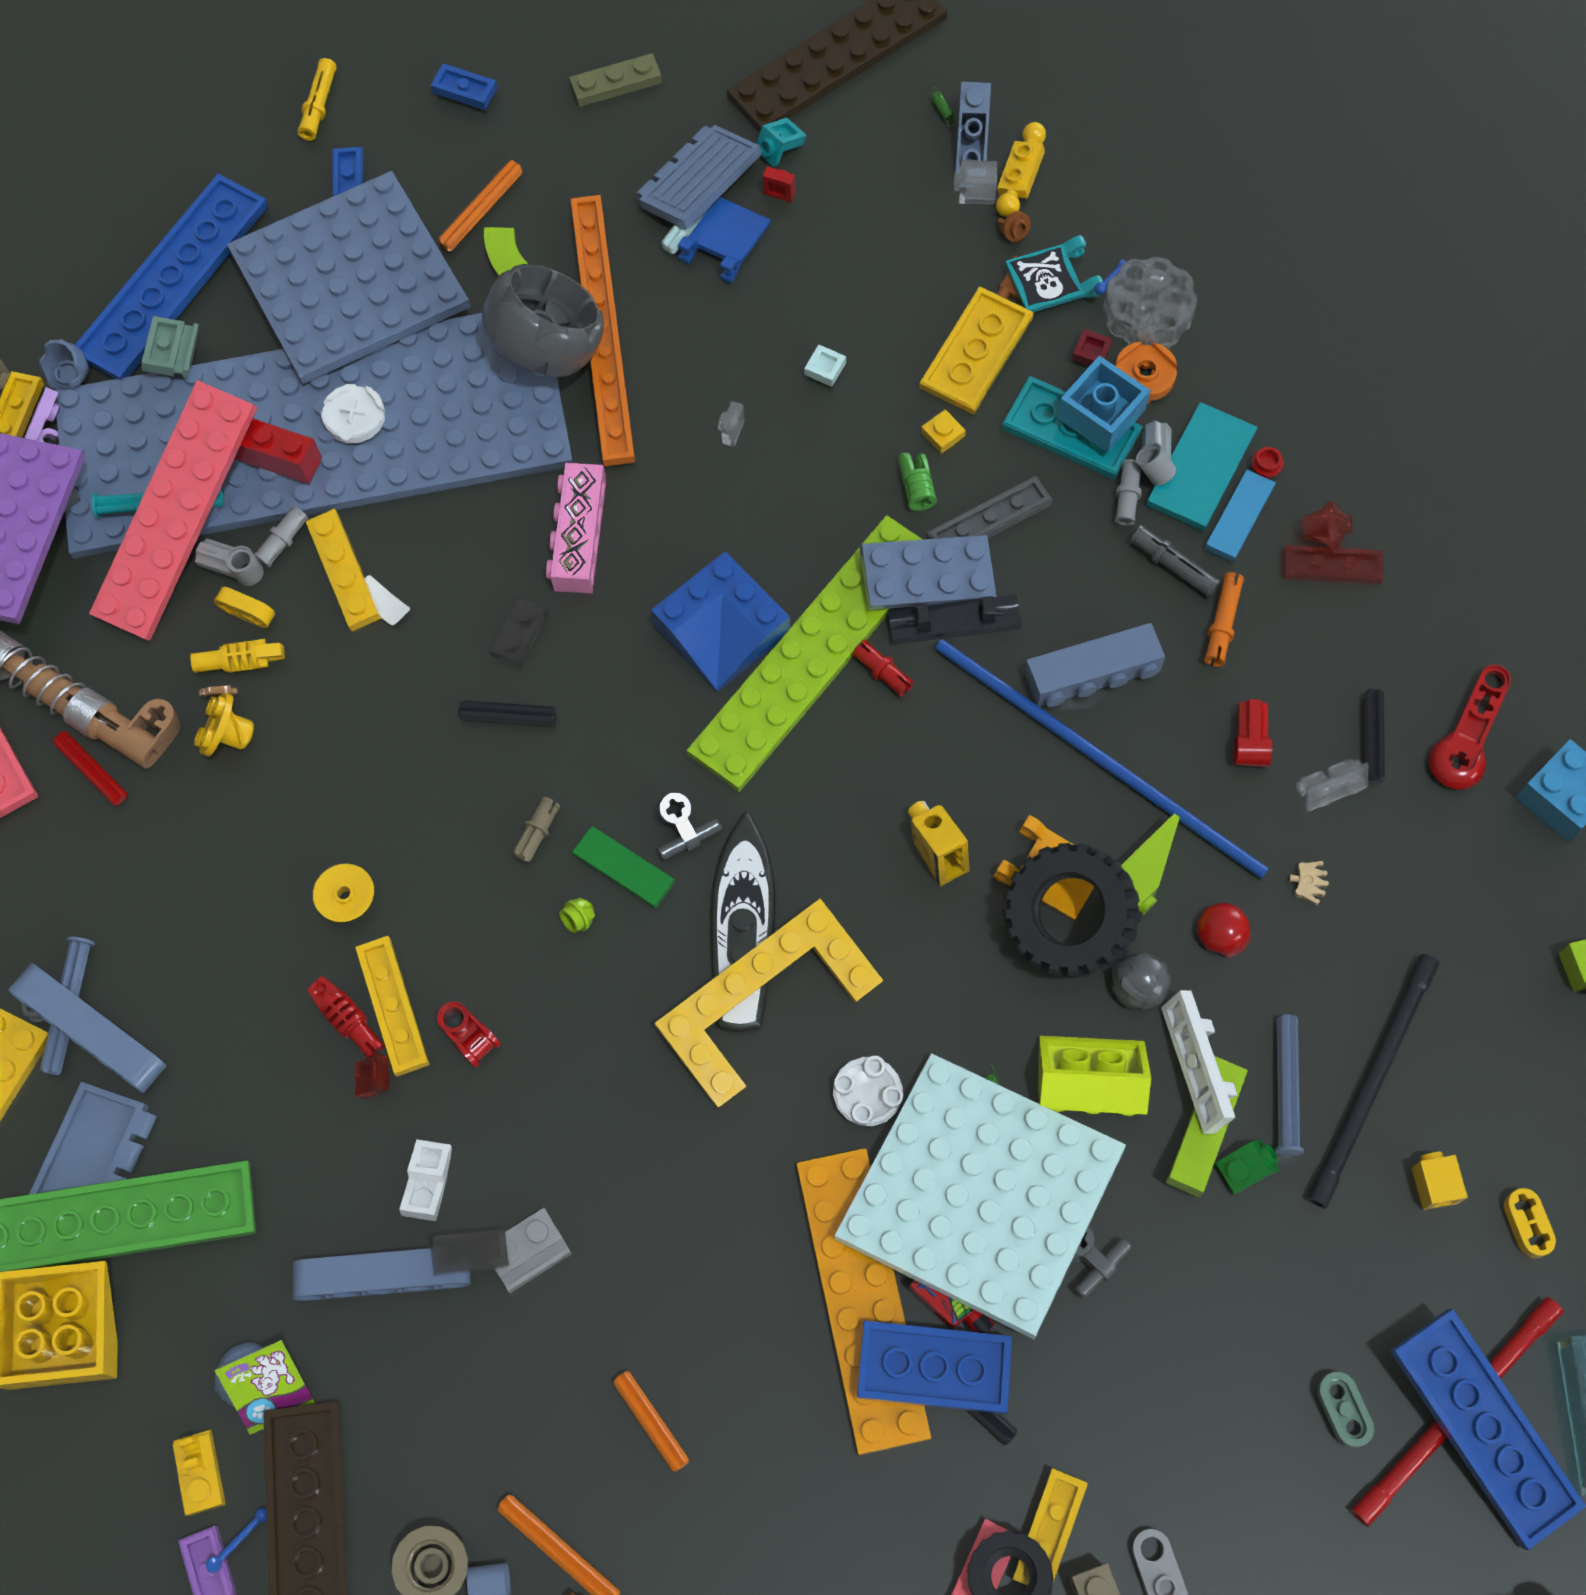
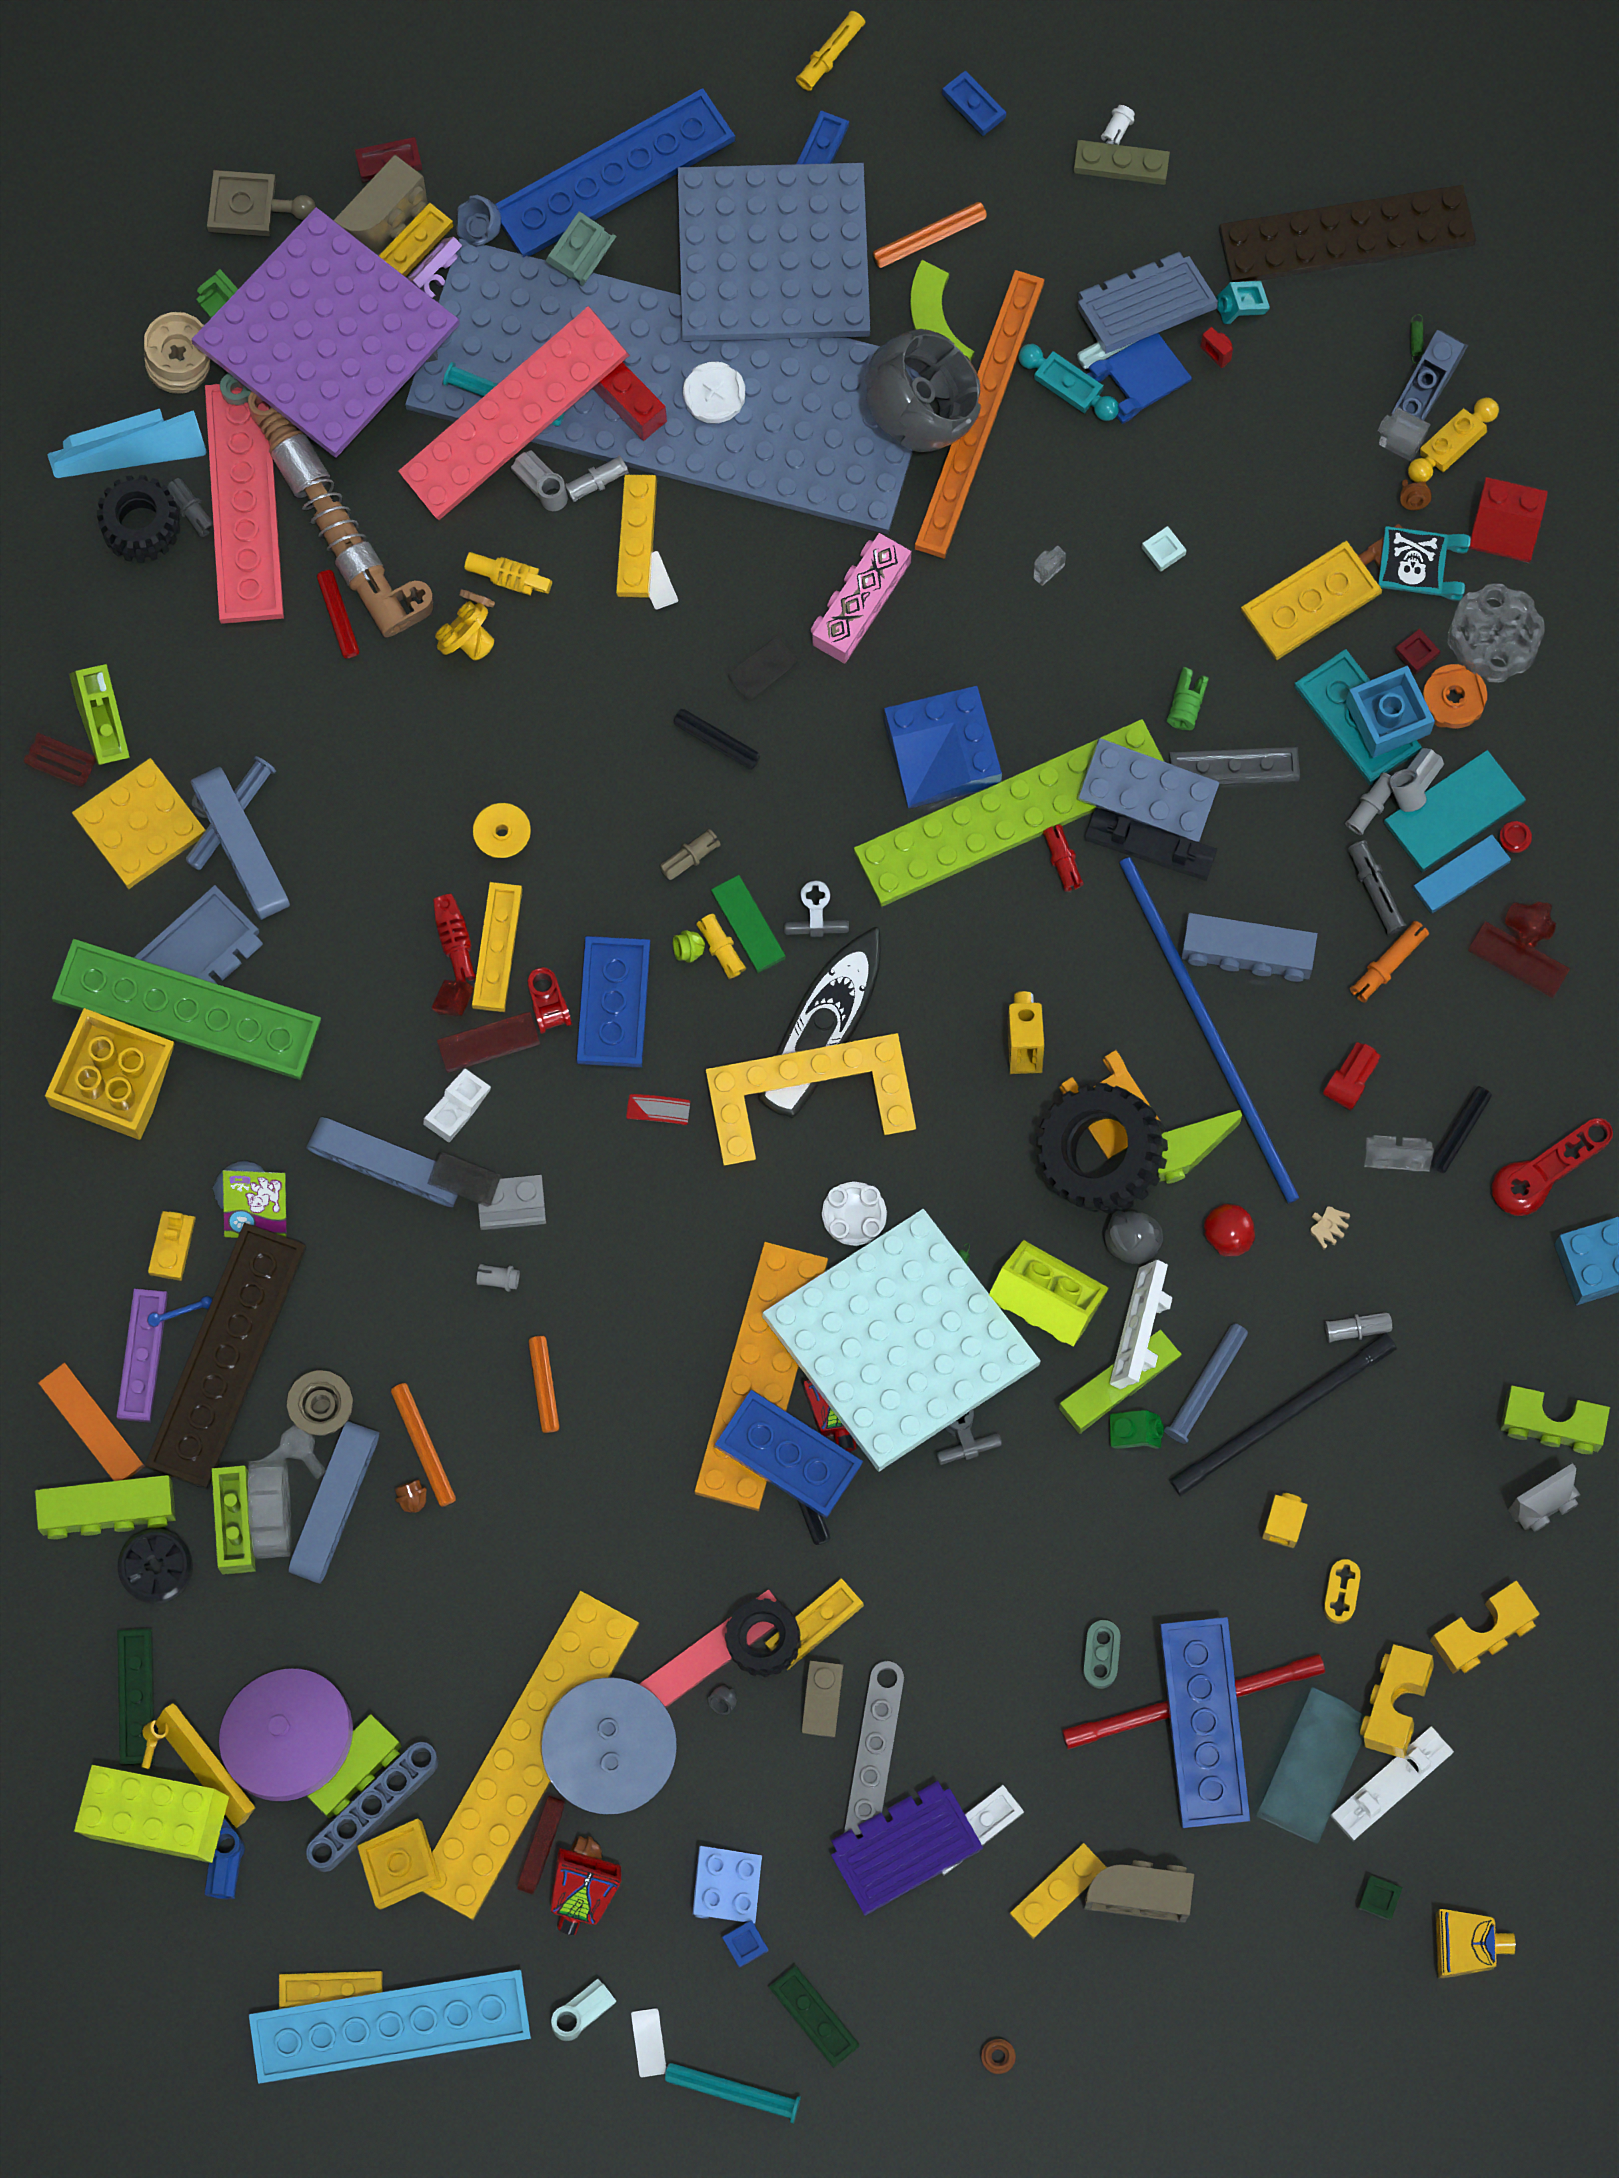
camera: 25 degrees right, 5 degrees up
(244, 607) = (534, 530): yellow beam -> none
(427, 1102) = (488, 1042): none -> clear red tile
(531, 1003) = (613, 1001): none -> blue plate
(551, 1333) = (498, 1277): none -> light grey pin
(597, 45) = (1118, 124): none -> white pin
(608, 899) = (721, 946): none -> yellow pin
(625, 1084) = (658, 1108): none -> sticker
(666, 268) = (1068, 382): none -> teal plate
(943, 431) = (1238, 664): yellow plate -> none
(1100, 288) = (1455, 596): blue hinge -> none
(1105, 208) = (1508, 519): none -> red slope
(1392, 961) = (1358, 1327): none -> light grey axle

